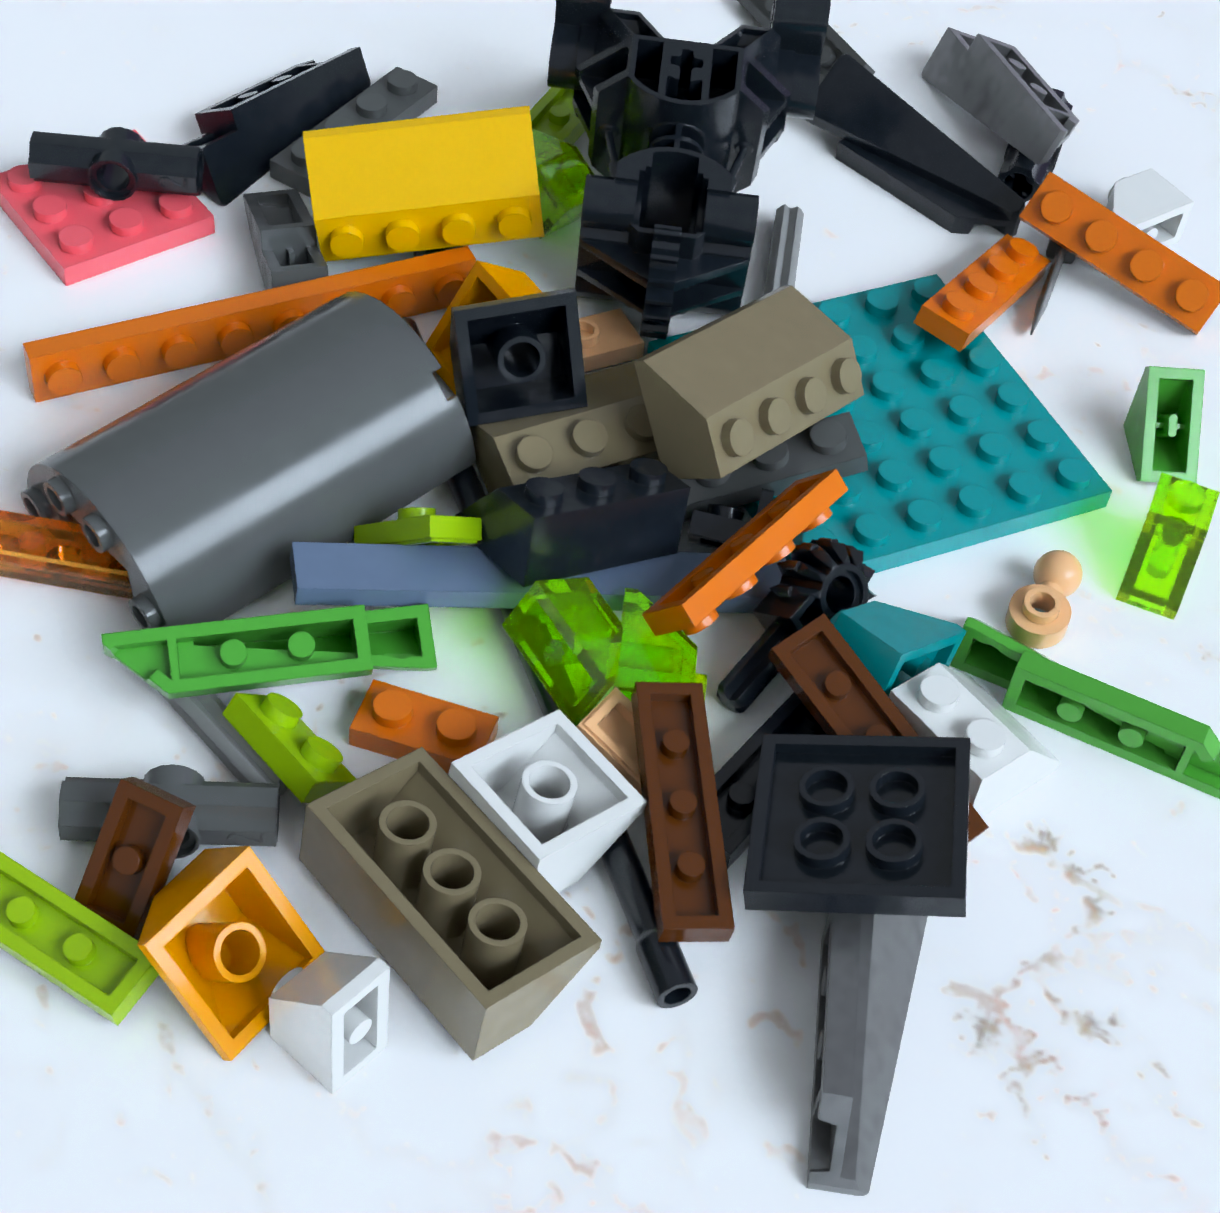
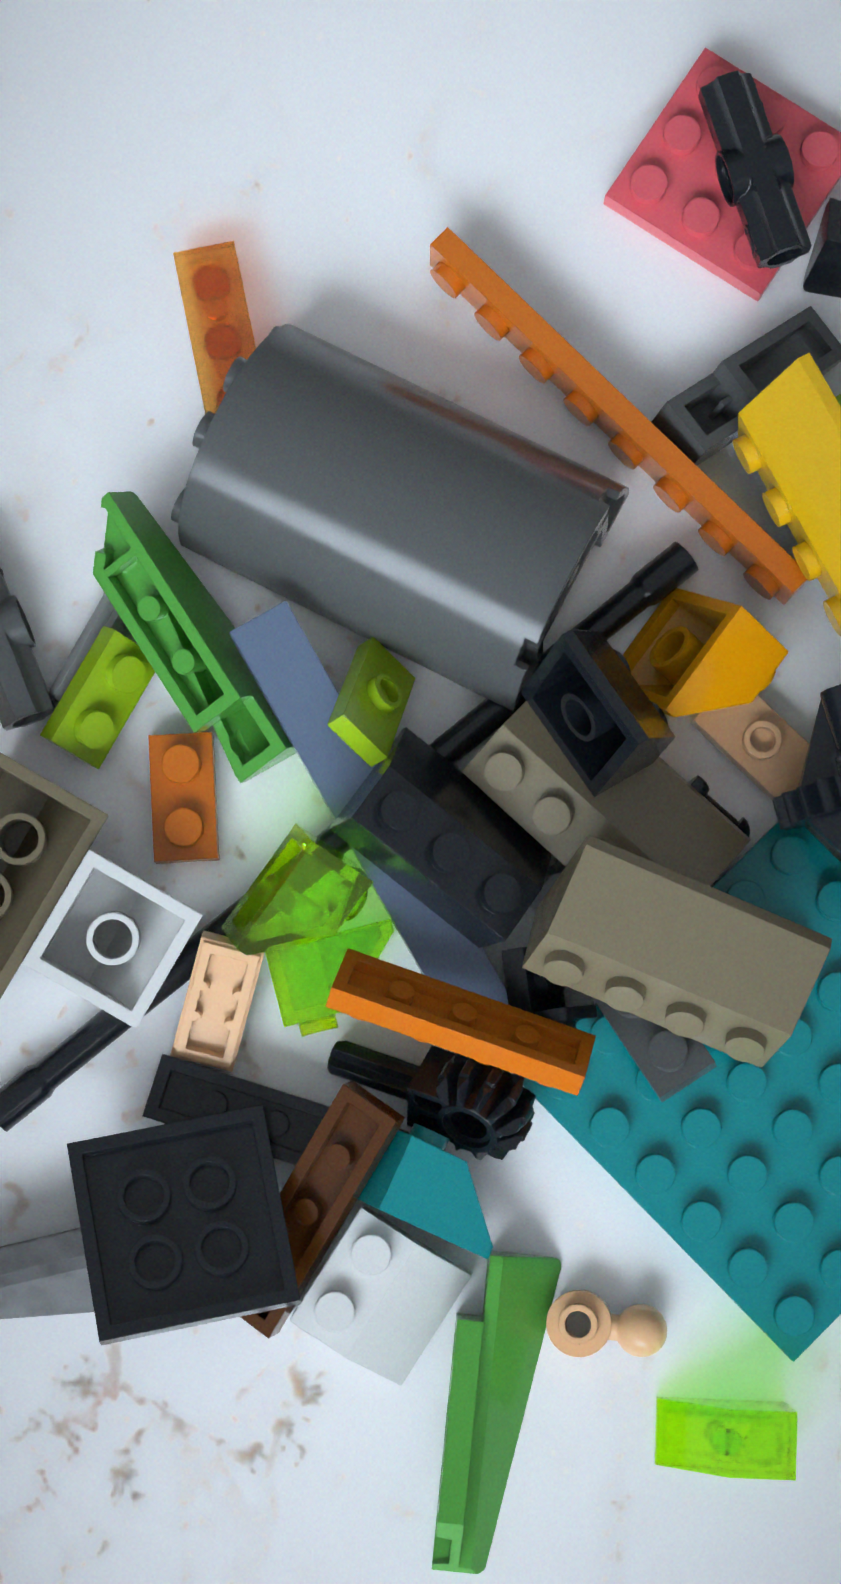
camera: 75 degrees right, 35 degrees up
(681, 813) = (150, 1059): reddish brown plate -> none

